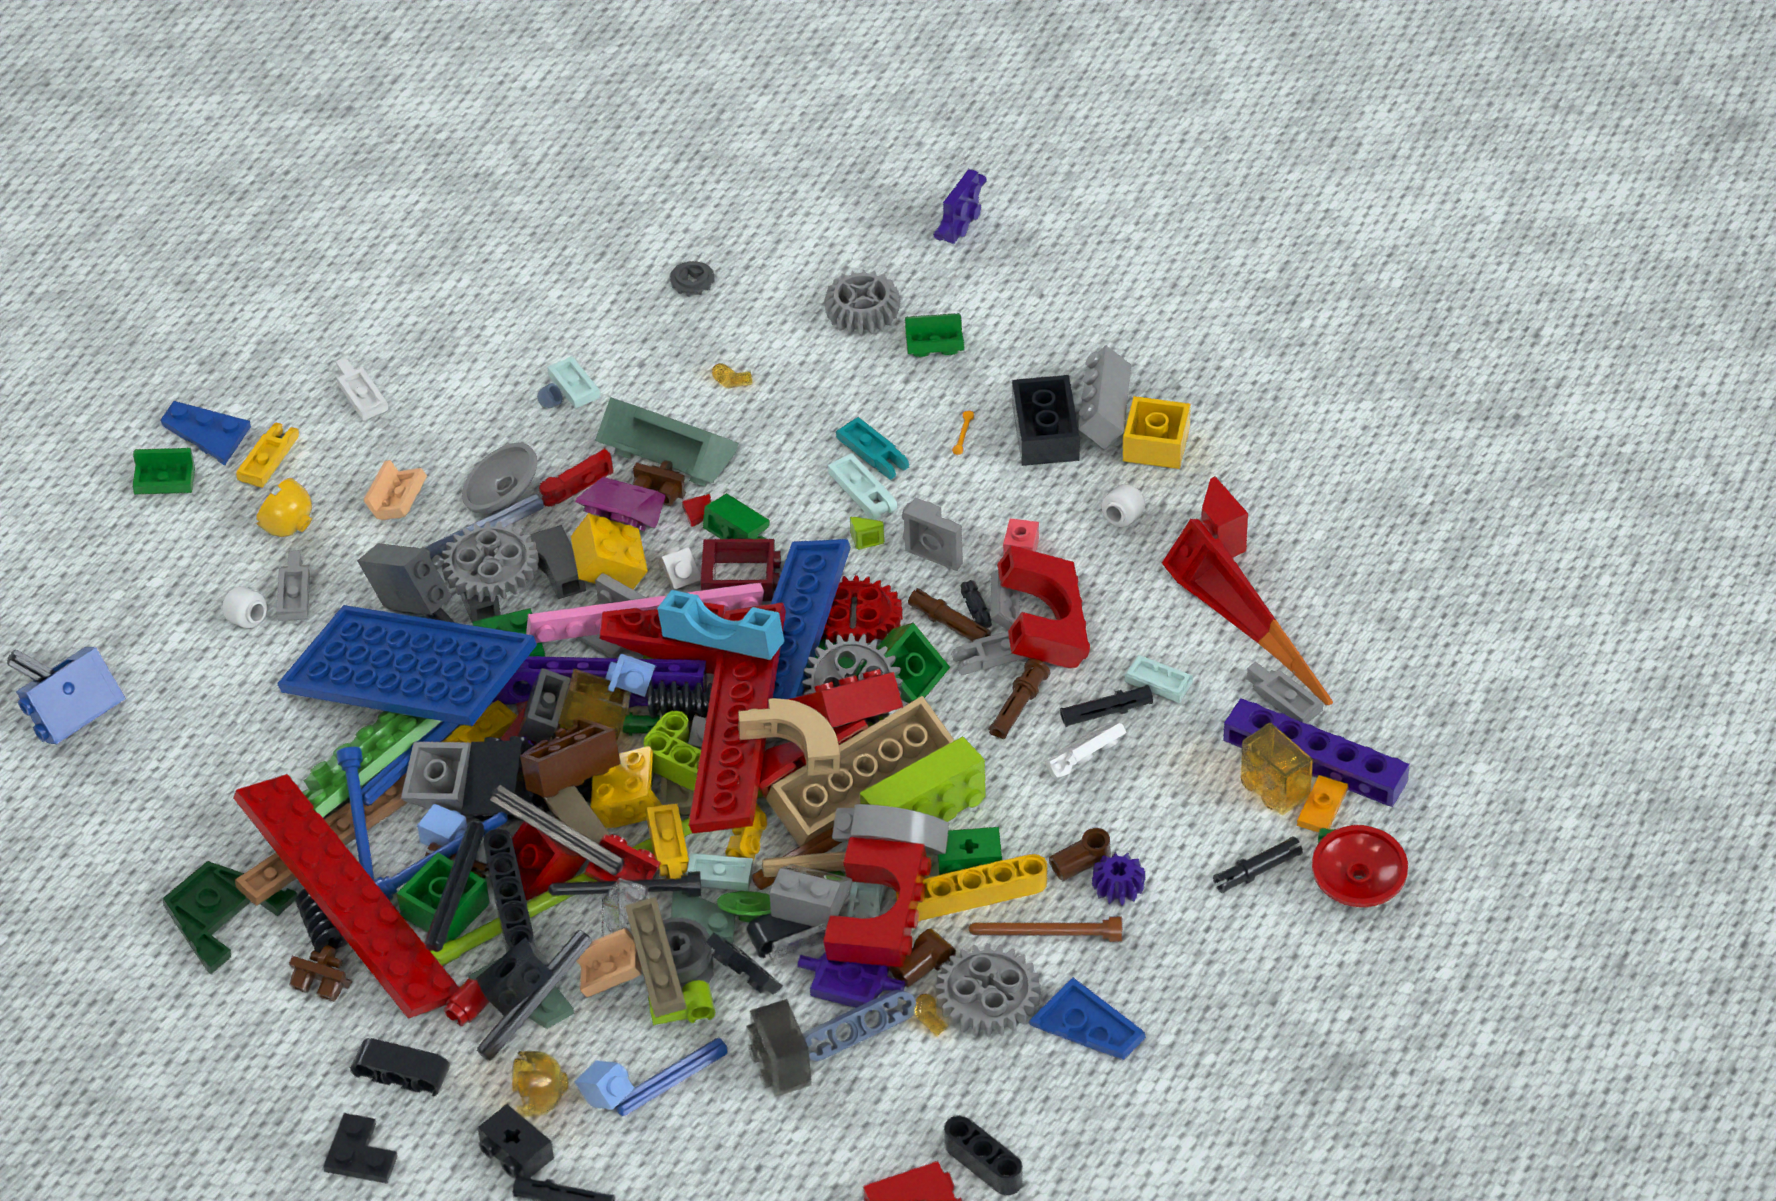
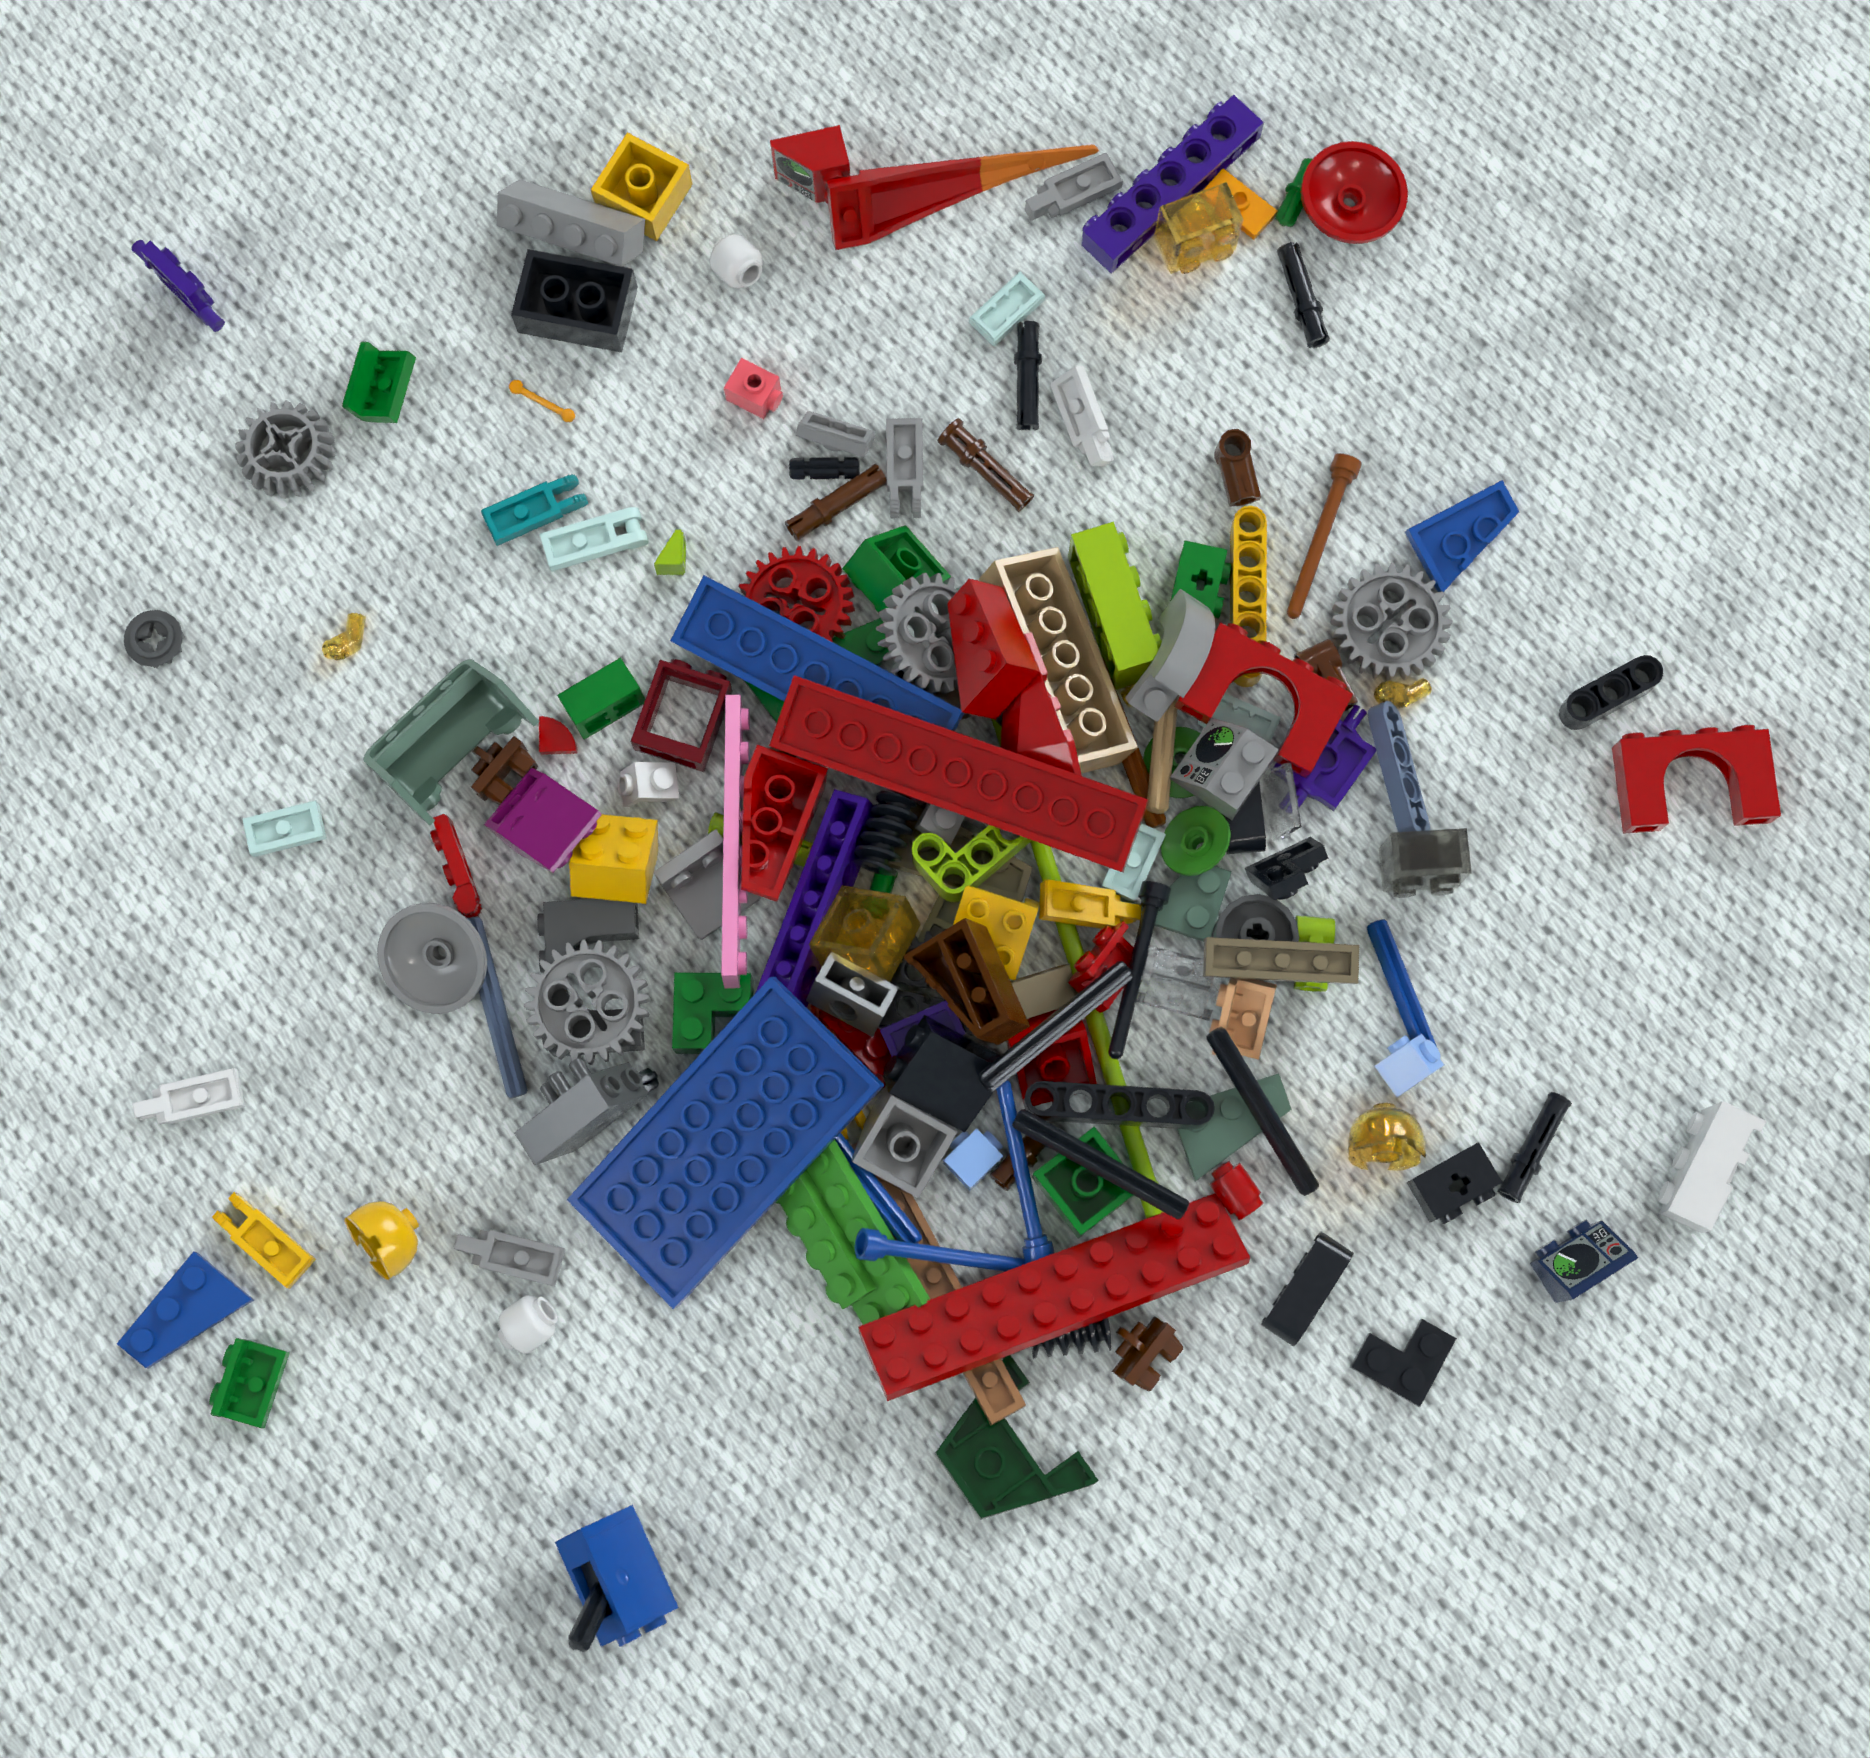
camera: 75 degrees left, 30 degrees up
(394, 491) = (395, 1093): light nougat bracket -> none
(514, 976) = (1244, 1148): black brick -> none
(549, 396) = (298, 864): sand blue hinge -> none
(630, 675) = (842, 880): light blue bracket -> none
(689, 620) = (852, 728): medium azure arch -> none
(798, 724) = (1051, 692): tan arch -> none
(931, 535) = (711, 485): light grey plate -> none
(1056, 584) = (842, 369): red arch -> none
(1118, 878) = (1276, 451): dark purple gear -> none

